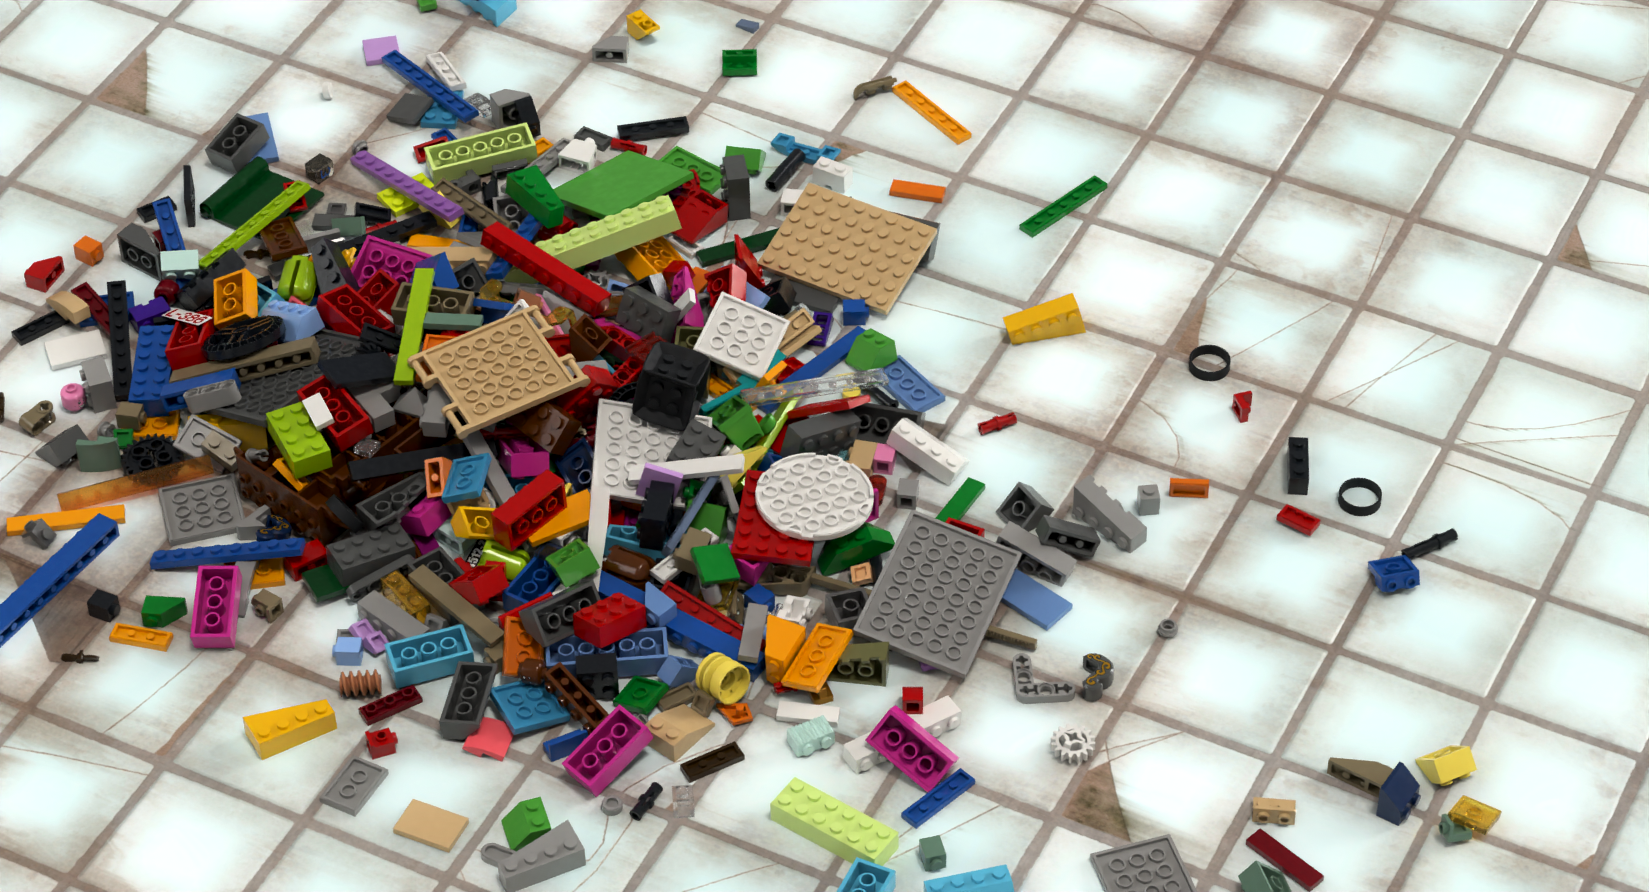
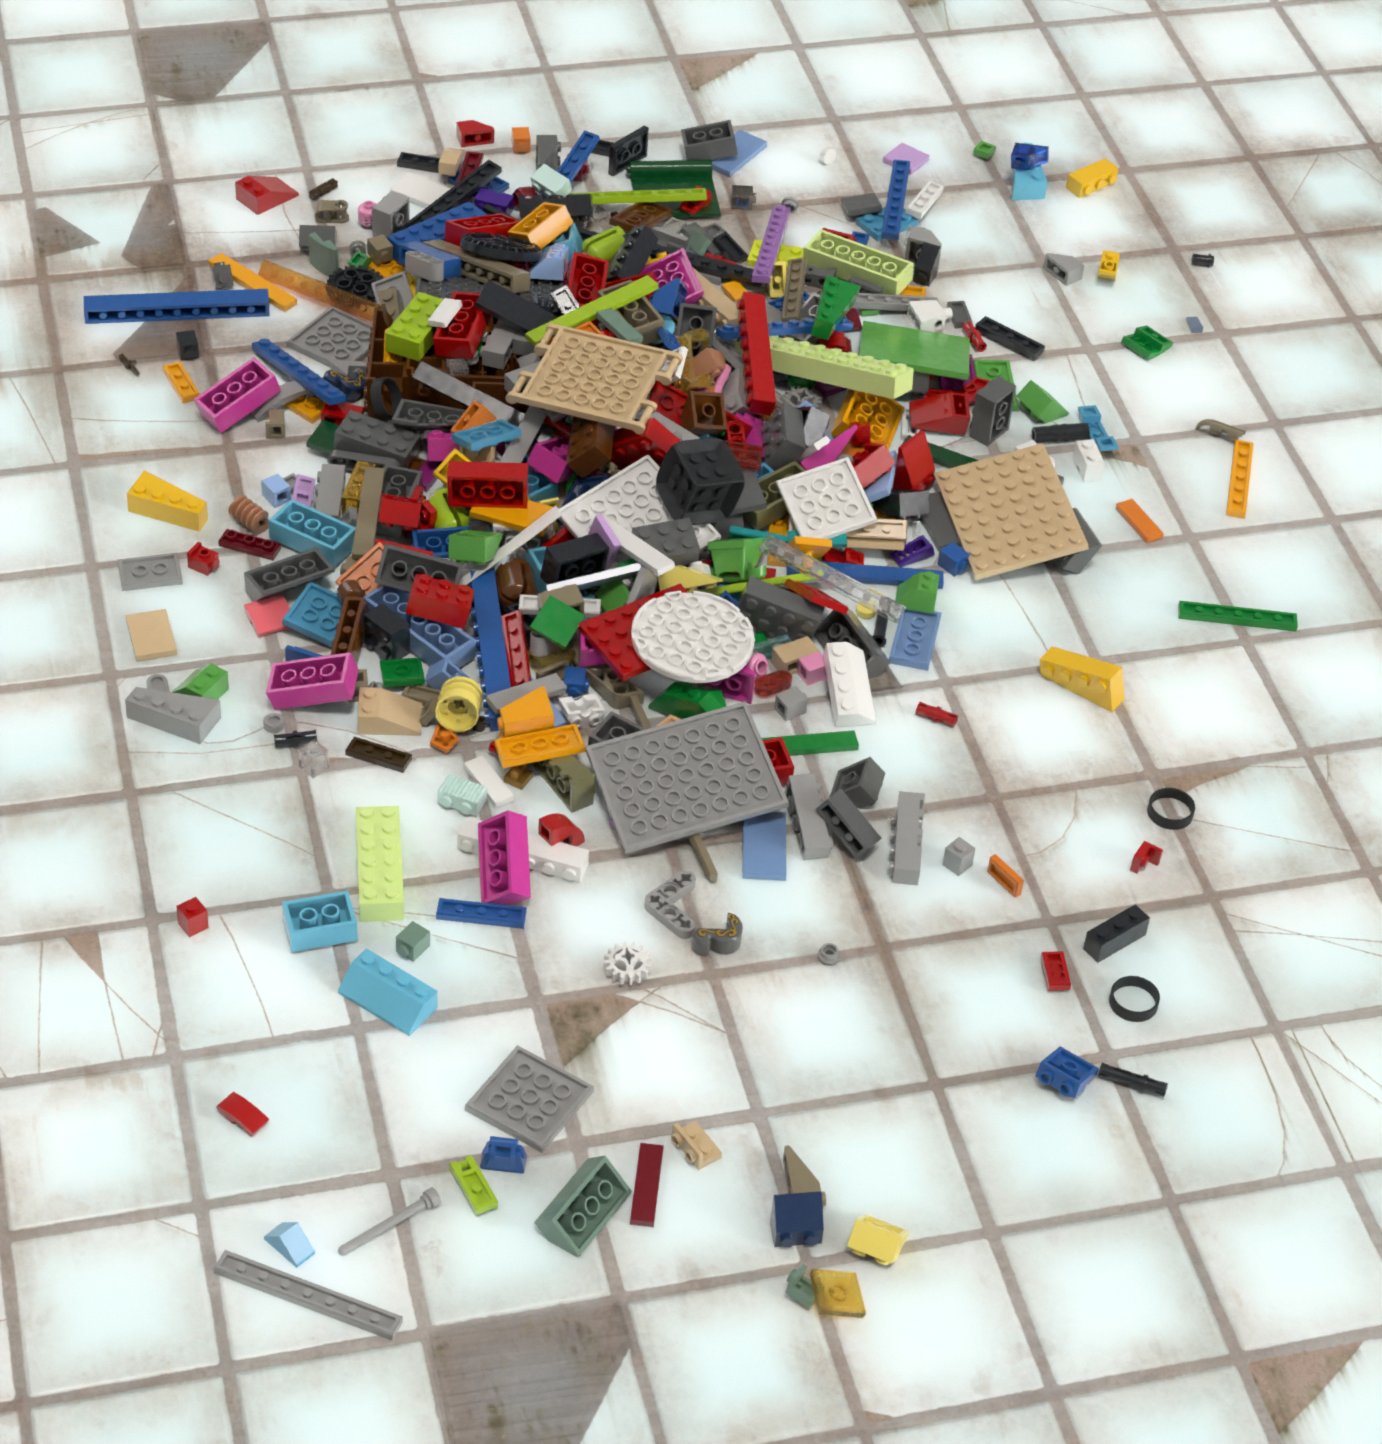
camera: 45 degrees right, 0 degrees up
(162, 610) = (209, 372): green slope -> none
(187, 316) = (501, 215): white sticker -> none
(658, 606) = (485, 620): medium blue slope -> none

